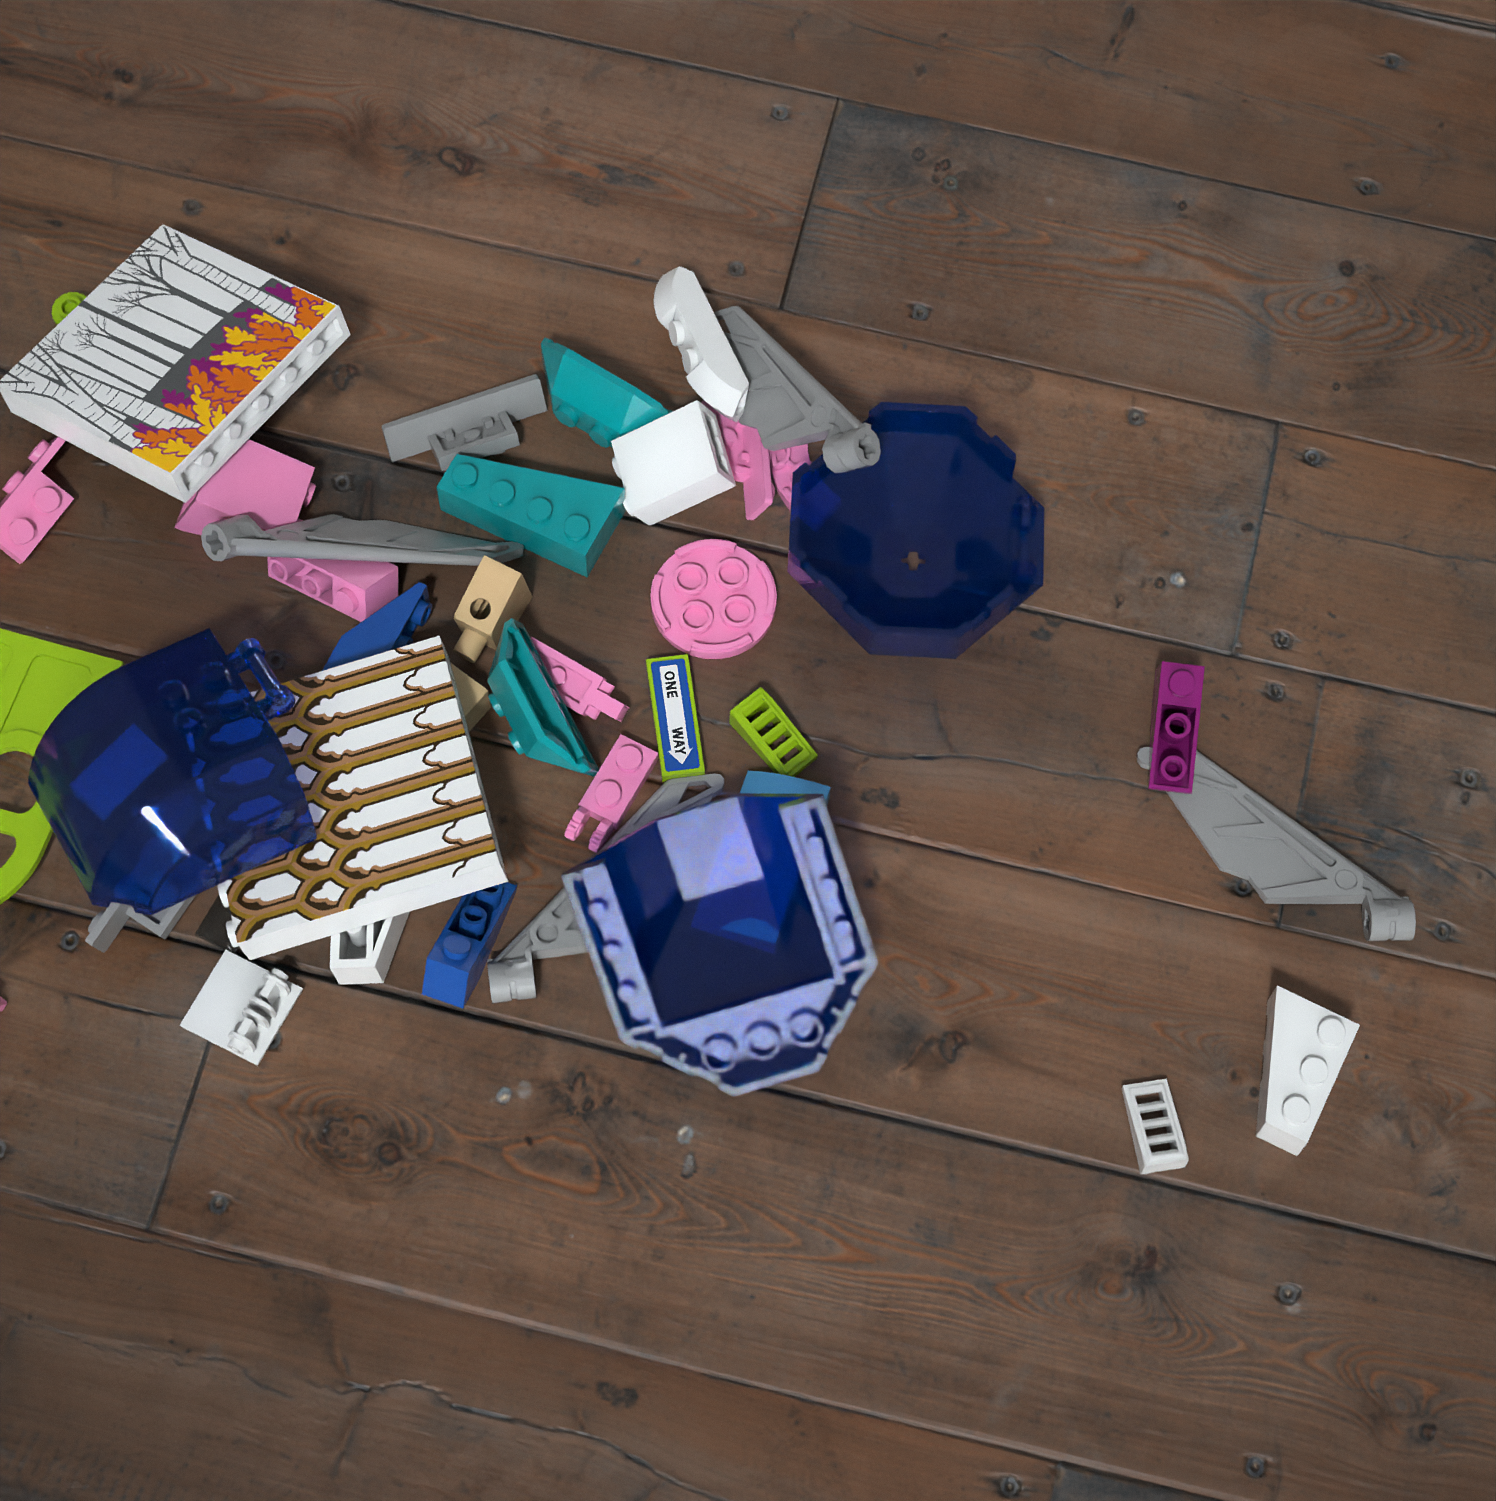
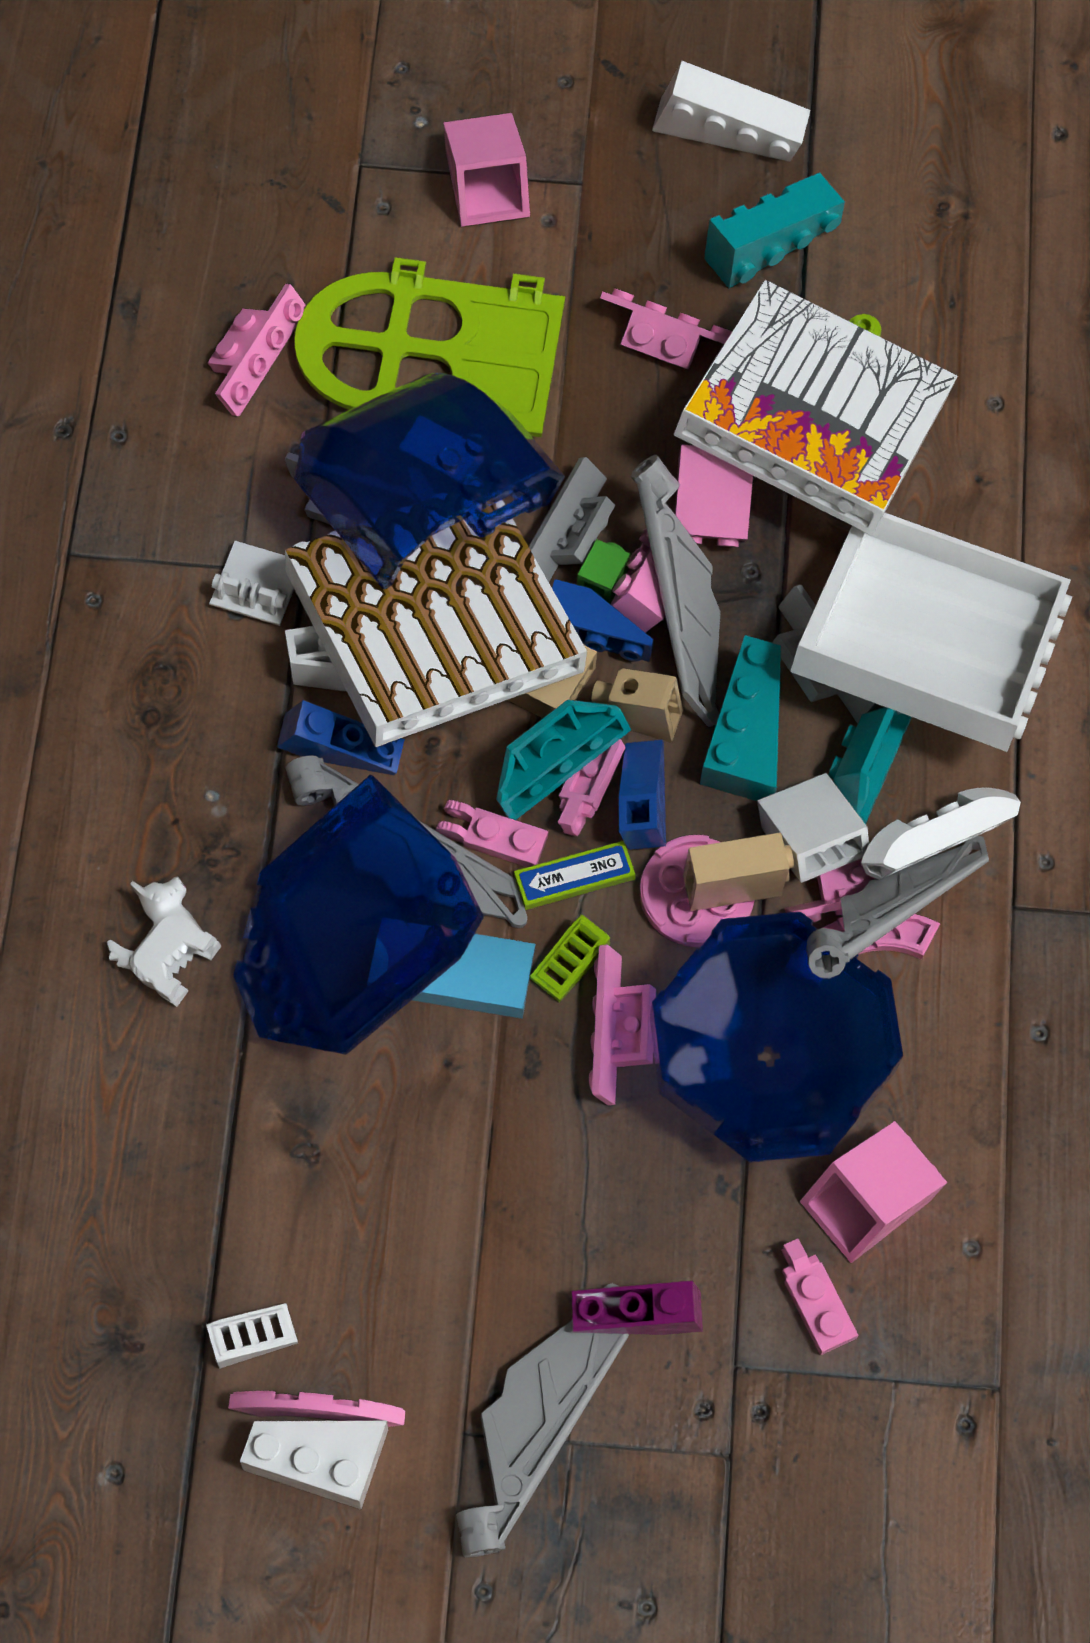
camera: 80 degrees right, 0 degrees up
(241, 622) = (573, 520): none -> light grey bracket
(314, 624) = (603, 568): none -> bright green brick
(474, 300) = (935, 629): none -> white panel
(596, 626) = (643, 795): none -> blue slope
(688, 1156) = (168, 943): none -> white animal
(718, 541) = (737, 871): none -> tan brick
(859, 690) = (621, 1025): none -> bright pink bracket
(1080, 484) = (872, 1191): none -> bright pink slope
(1175, 564) = (816, 1299): none -> bright pink hinge
(1247, 1081) = (315, 1406): none -> bright pink tile

